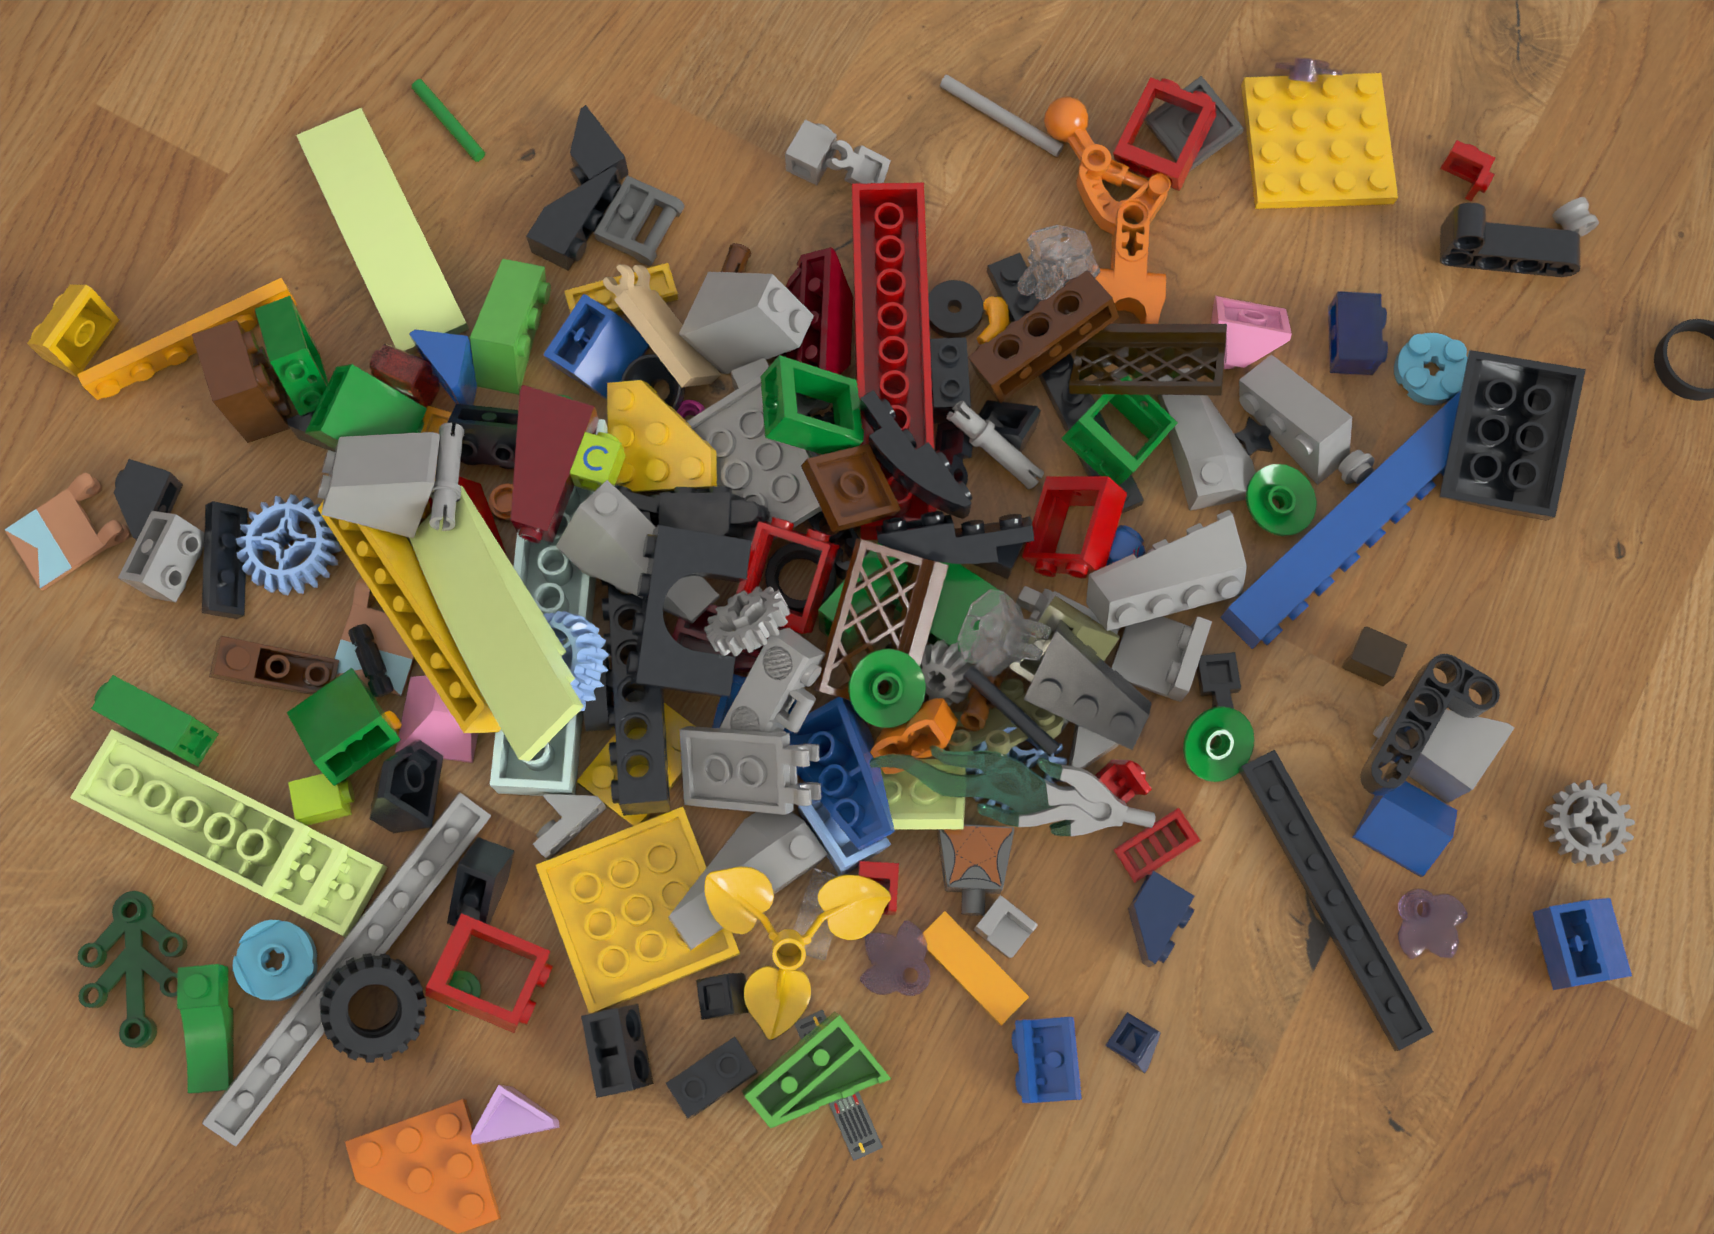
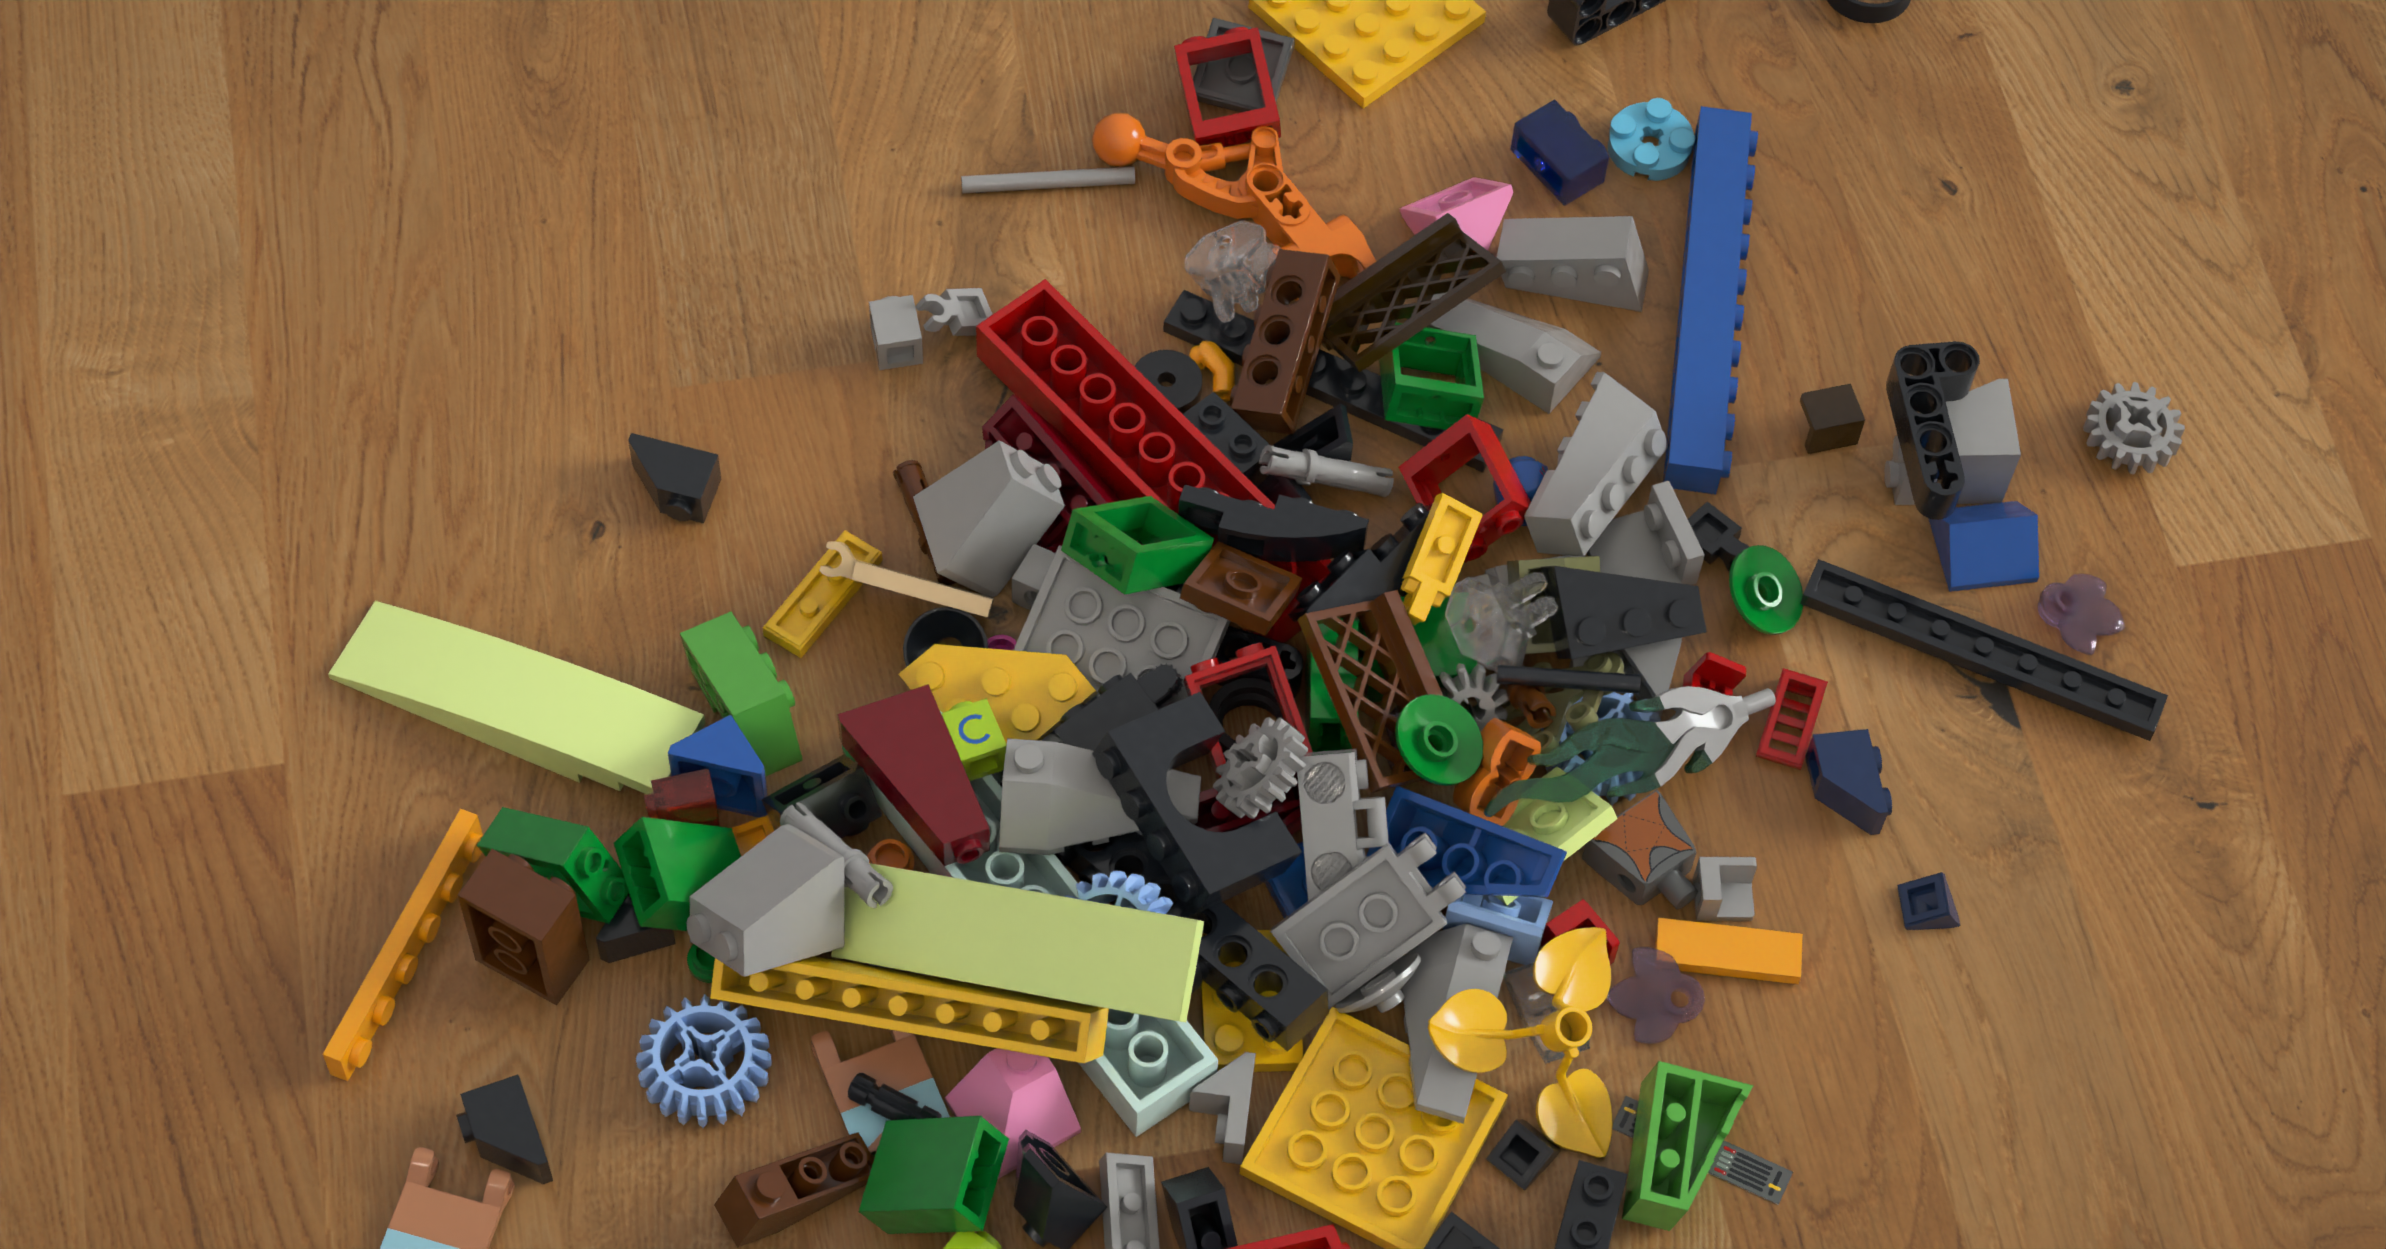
camera: 40 degrees left, 15 degrees down
(73, 329) = (264, 1018): yellow slope -> none
(163, 556) = (586, 1161): light grey brick -> none
(222, 570) = (656, 1134): black plate -> none
(448, 120) = (482, 551): green bar -> none
(568, 222) = (708, 557): black slope -> none
(595, 346) = (854, 651): blue slope -> none
(628, 215) = (764, 515): dark grey plate -> none
(718, 821) = (1383, 988): none -> light grey dish
(996, 562) = (1438, 555): none -> yellow hinge
(1046, 1060) = (1871, 971): blue bracket -> none
(1254, 437) = (1549, 307): black piece -> none
(1290, 490) = (1626, 341): green dish -> none
(1356, 467) = (1665, 269): light grey plate -> none
(1512, 434) = (1780, 142): black slope -> none
(1581, 943) = (2216, 532): blue slope -> none

